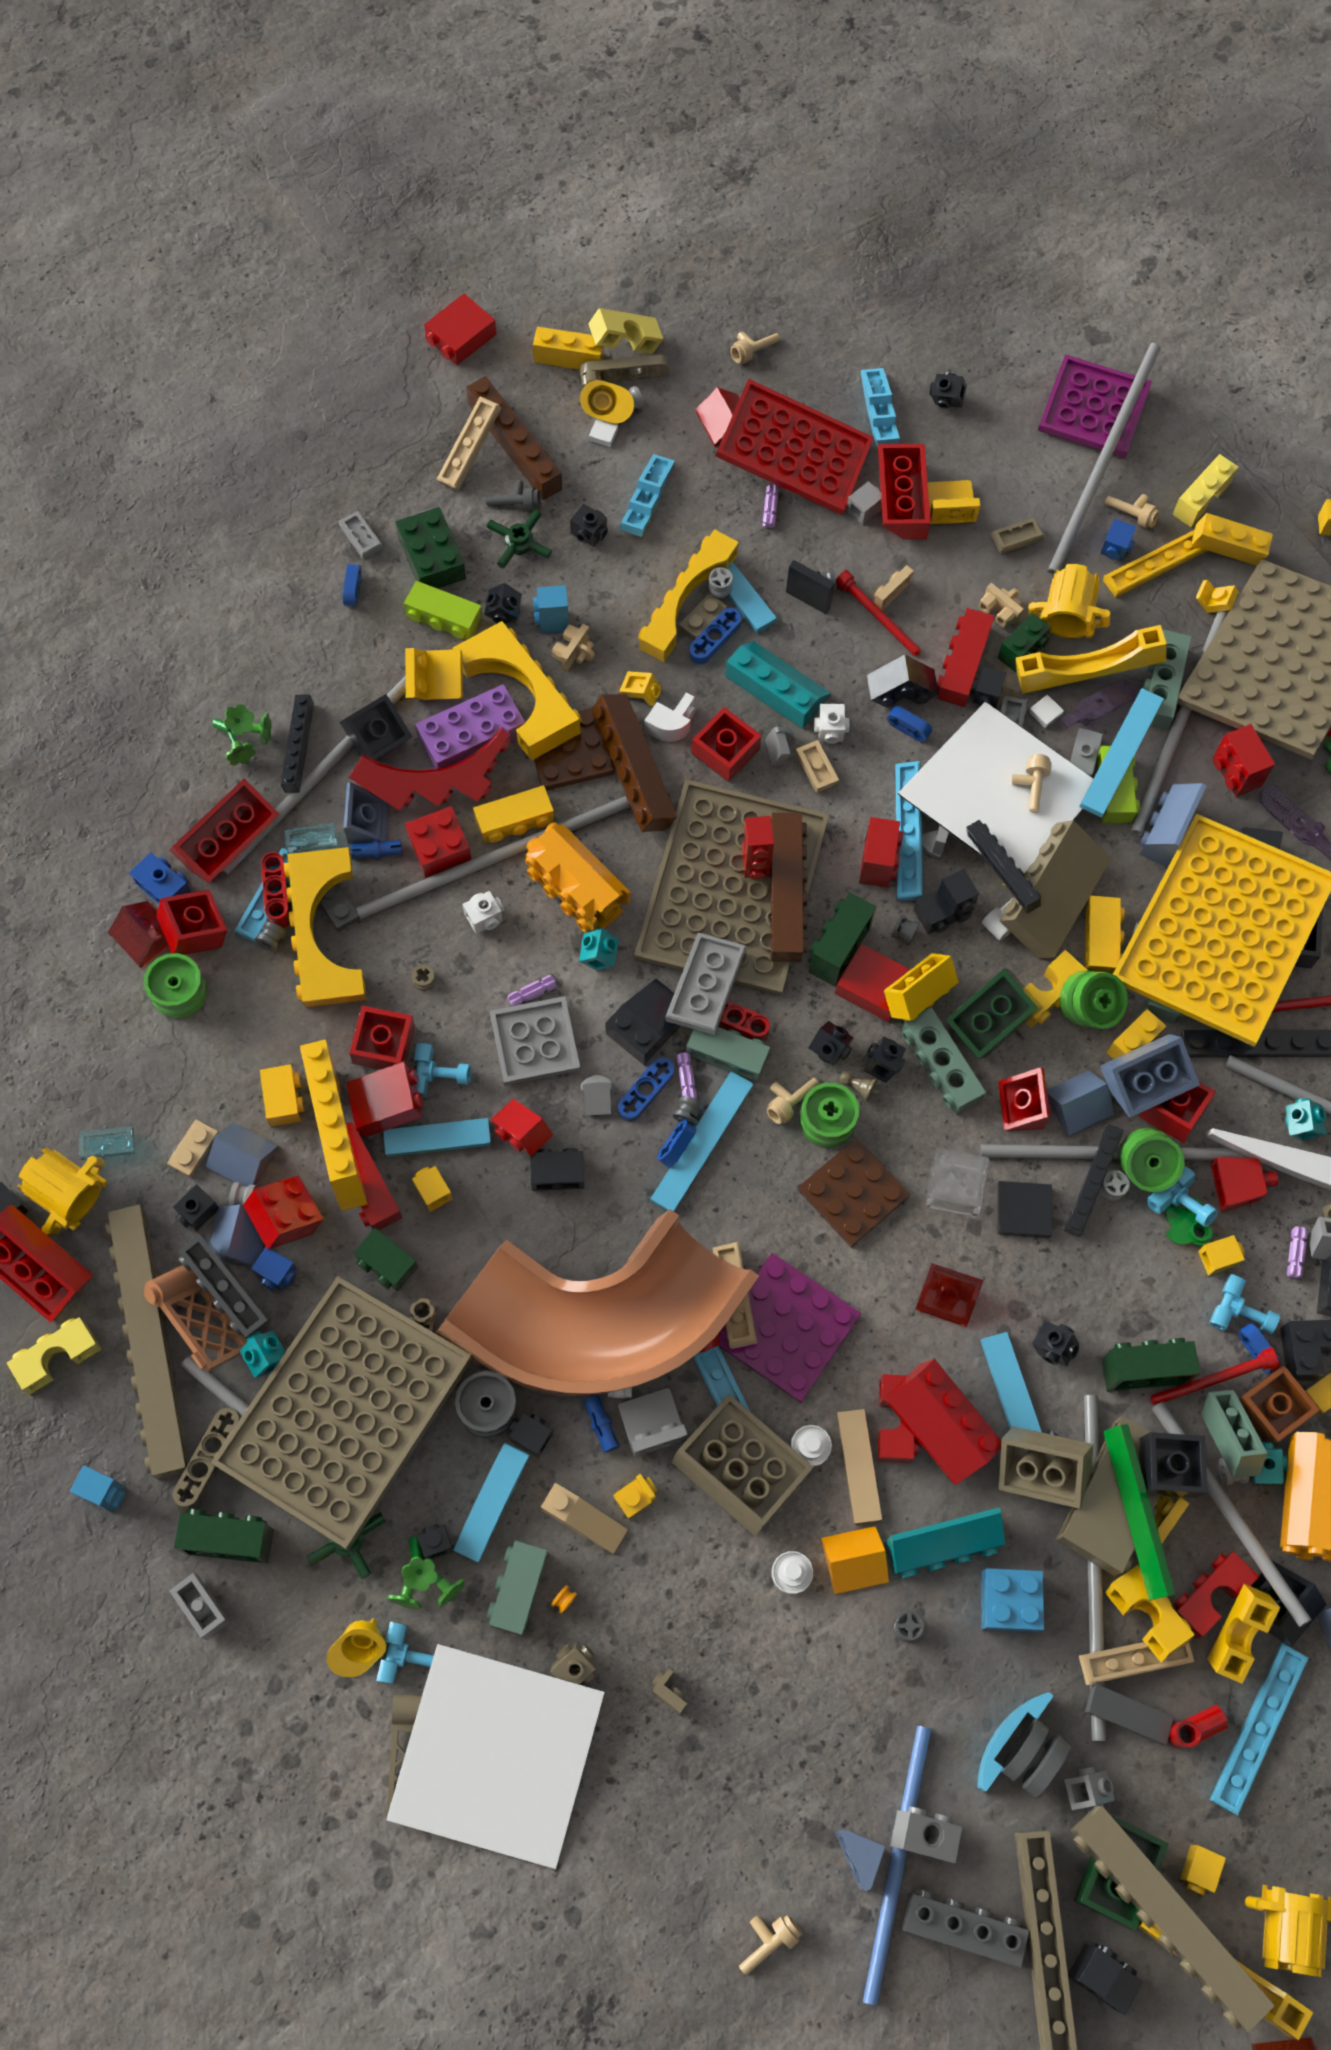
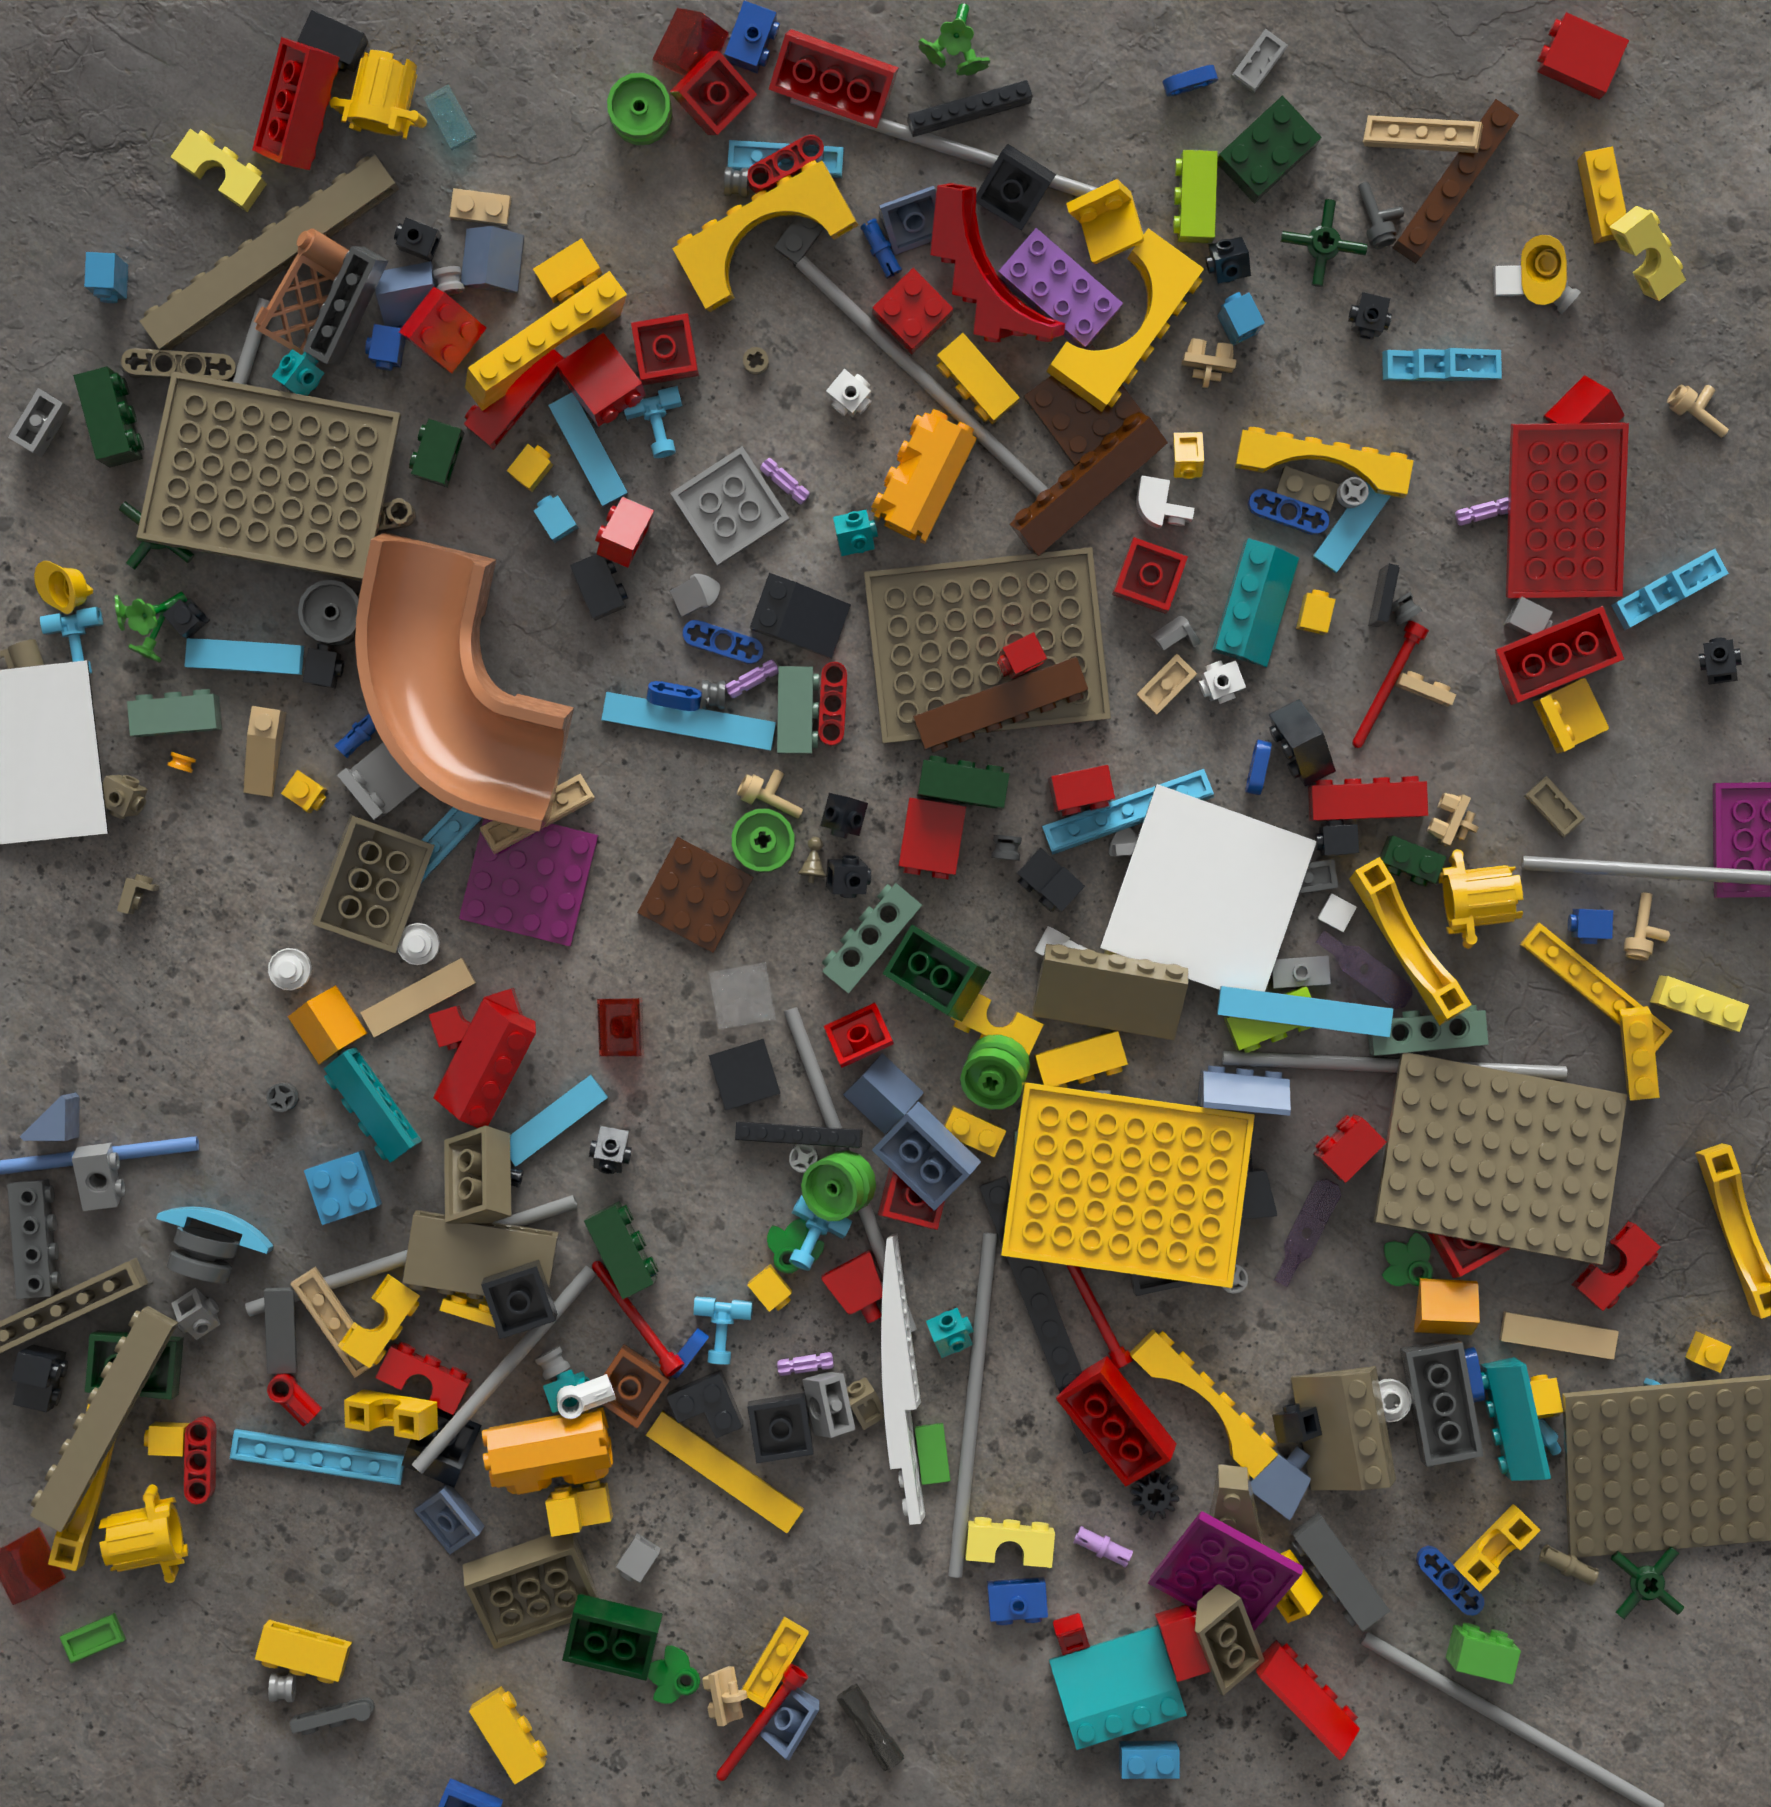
camera: 70 degrees right, 20 degrees up
(310, 838) = (864, 173): clear light blue plate -> none
(484, 1184) = (555, 518): none -> medium azure brick
(650, 367) = (1584, 238): dark tan beam -> none
(706, 983) = (855, 660): light grey tile -> none
(803, 642) = (1316, 612): none -> yellow brick
(921, 987) = (939, 886): yellow brick -> none
(1004, 866) = (1103, 927): black piece -> none
(1037, 768) = (1248, 926): tan piece -> none
(1139, 1512) = (462, 1280): green tile -> none
(1216, 599) = (1557, 1058): yellow bracket -> none
(1233, 1434) = (581, 1350): sand green brick -> none
(1246, 1844) = (193, 1472): none -> red beam
(1280, 1439) = (589, 1395): none -> white piece

